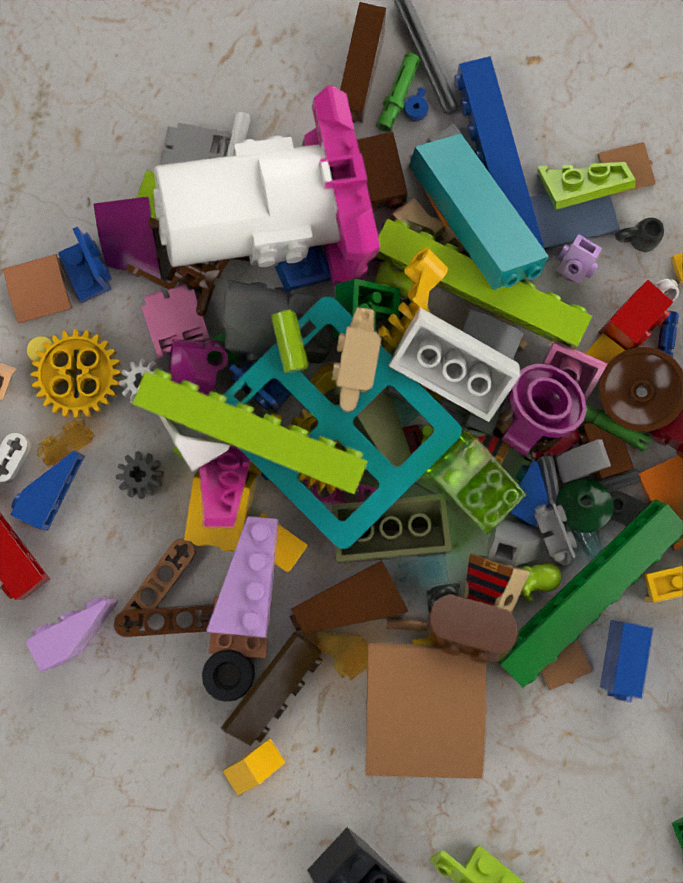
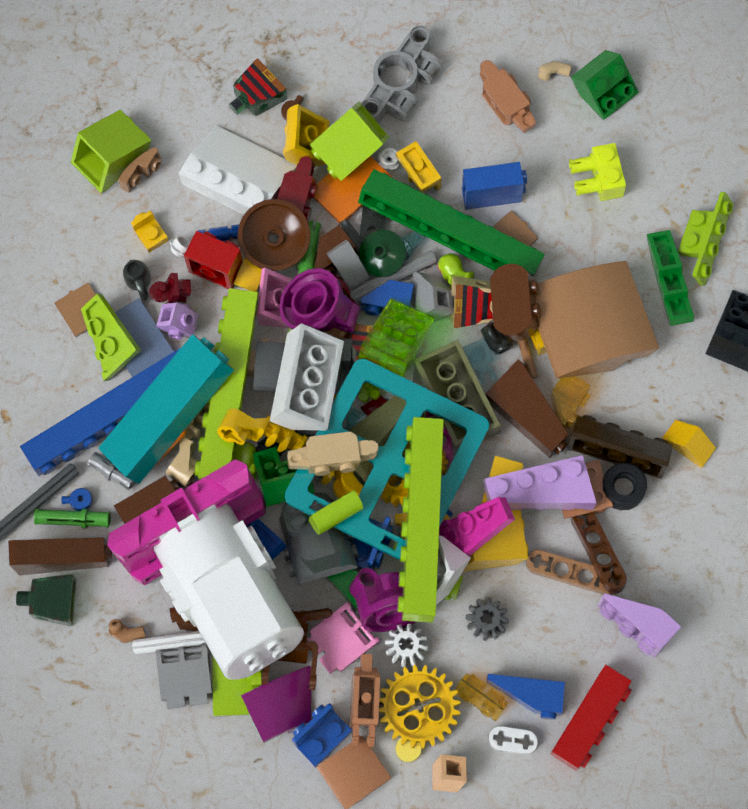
camera: 110 degrees left, 10 degrees down
(101, 320) = (364, 700): none -> nougat hinge
(260, 110) = (124, 633): none -> medium nougat arm
(318, 47) = (50, 599): none -> clear green torso
(451, 822) = (670, 277): none -> green slope
(560, 541) = (418, 260): light grey hinge -> none
(600, 800) = (607, 173): none -> neon yellow brick
(614, 262) = (172, 290): none -> dark red hips

